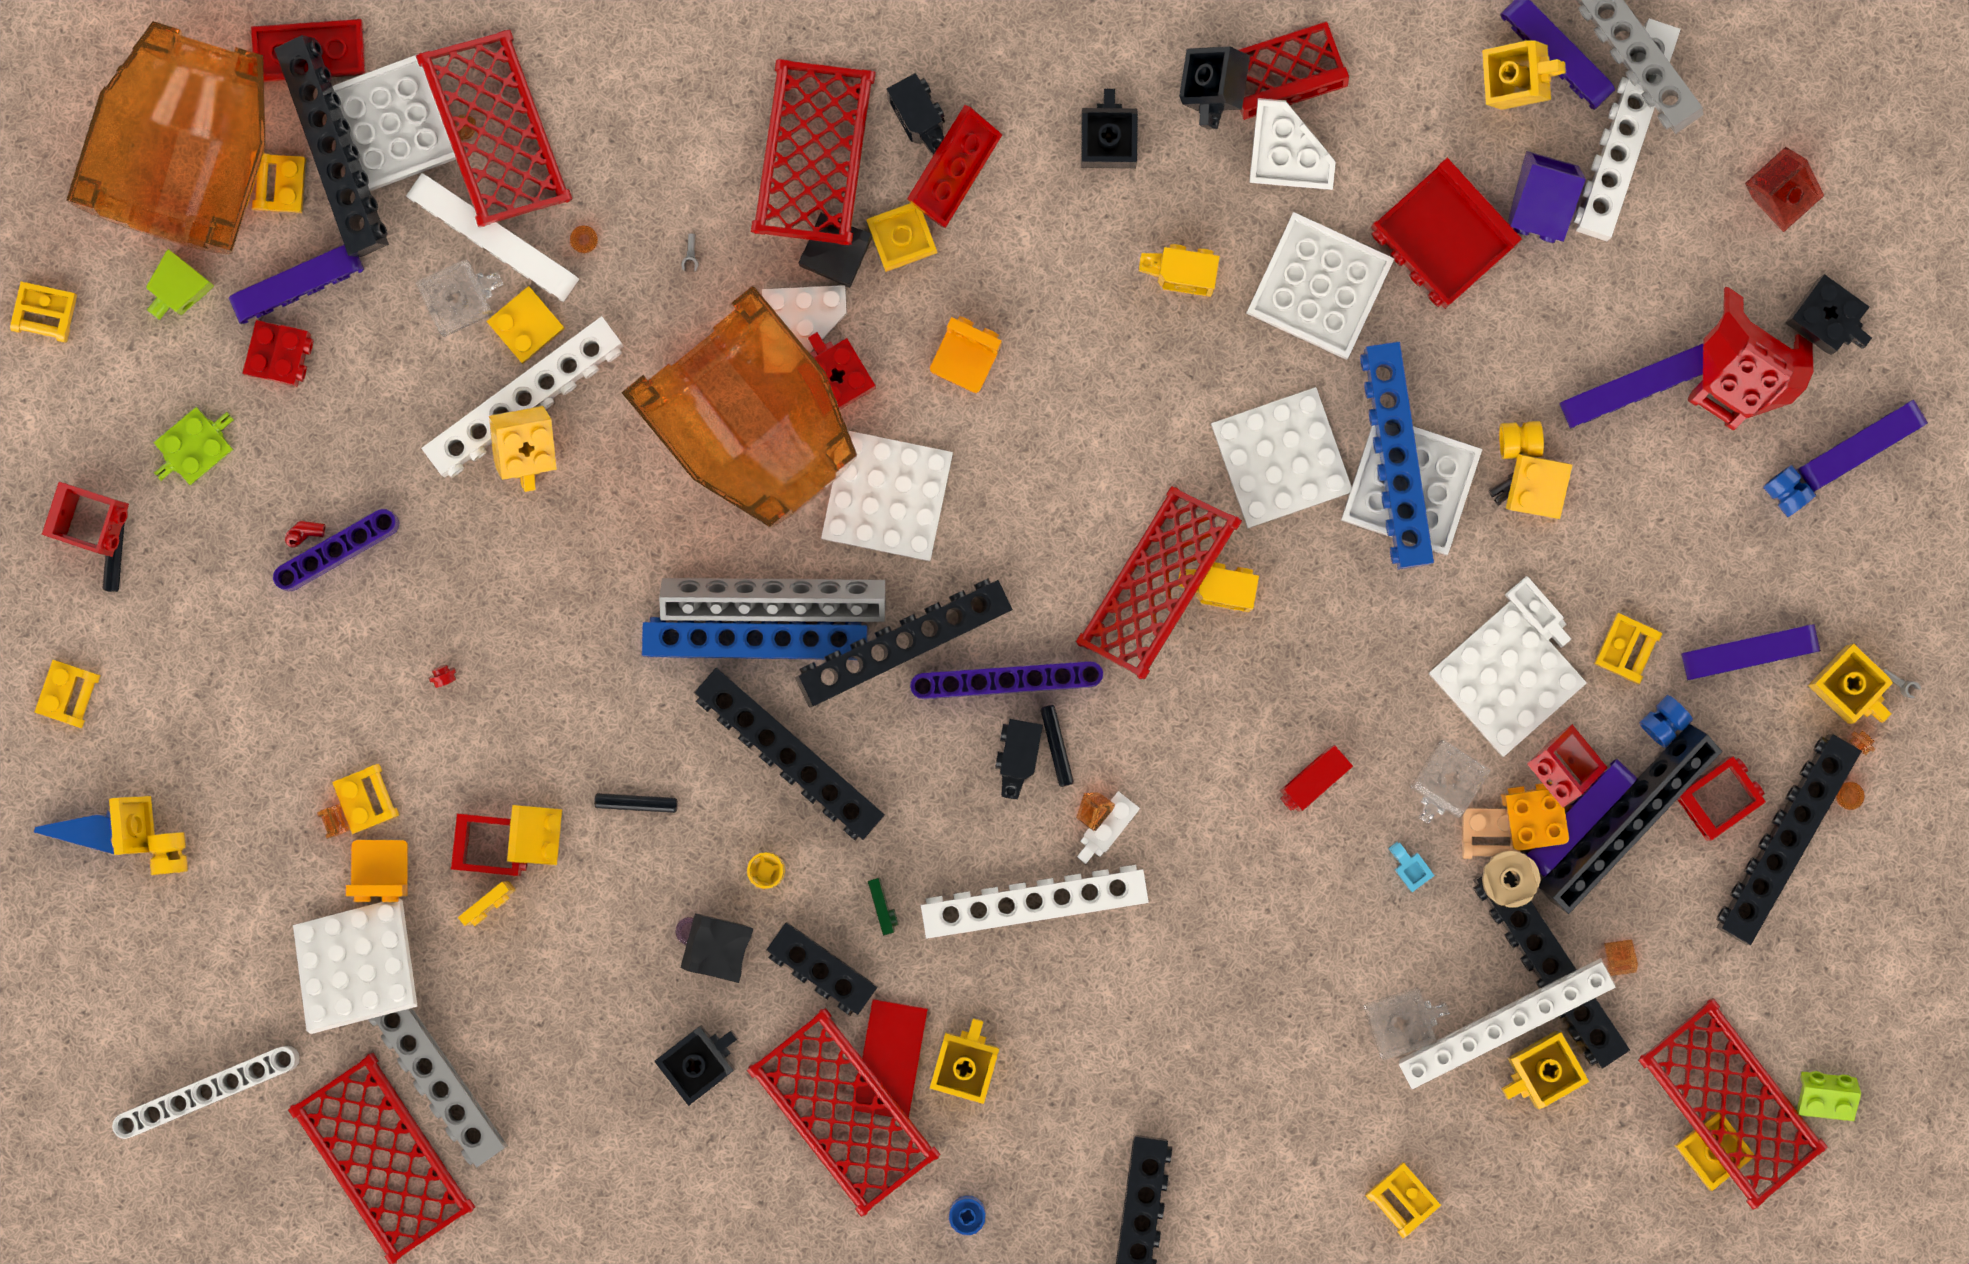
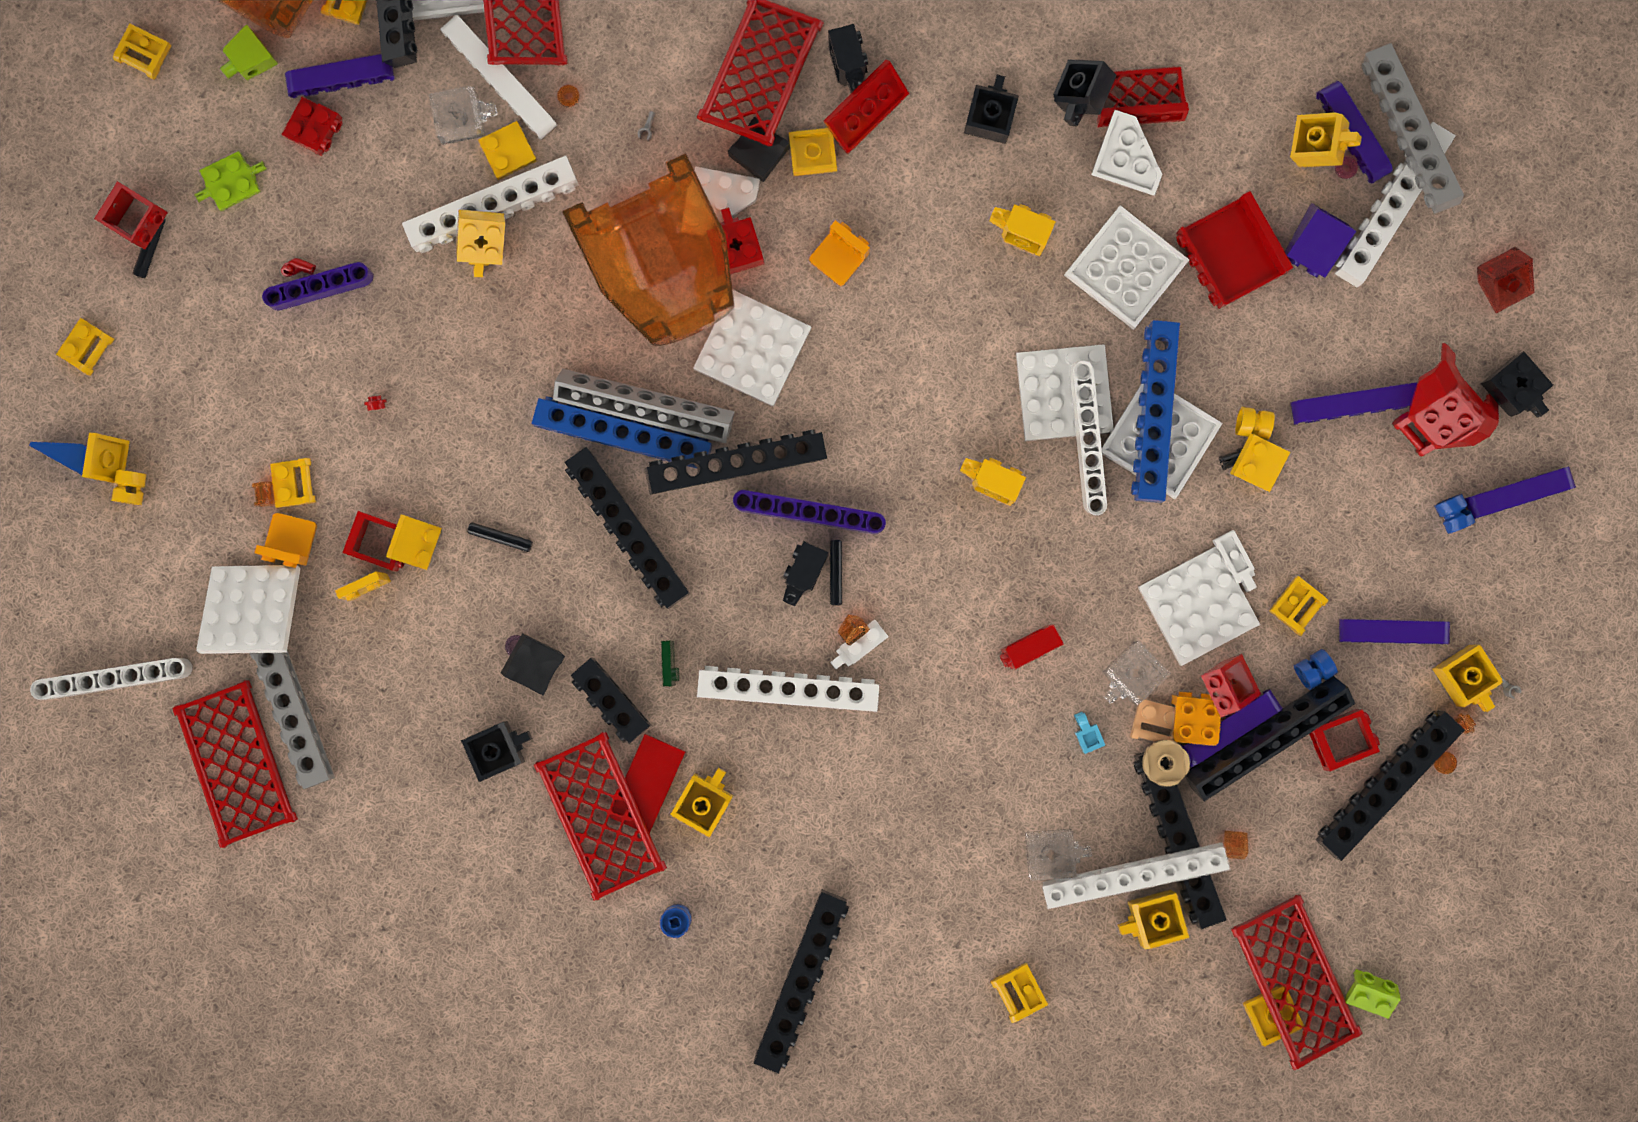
camera: 15 degrees right, 0 degrees up
(766, 870) = (586, 613): yellow wheel -> none
(1175, 606) = (955, 485): red door -> none
(1333, 517) = (1094, 447): none -> white beam
(1567, 97) = (1353, 167): none -> clear pink plate

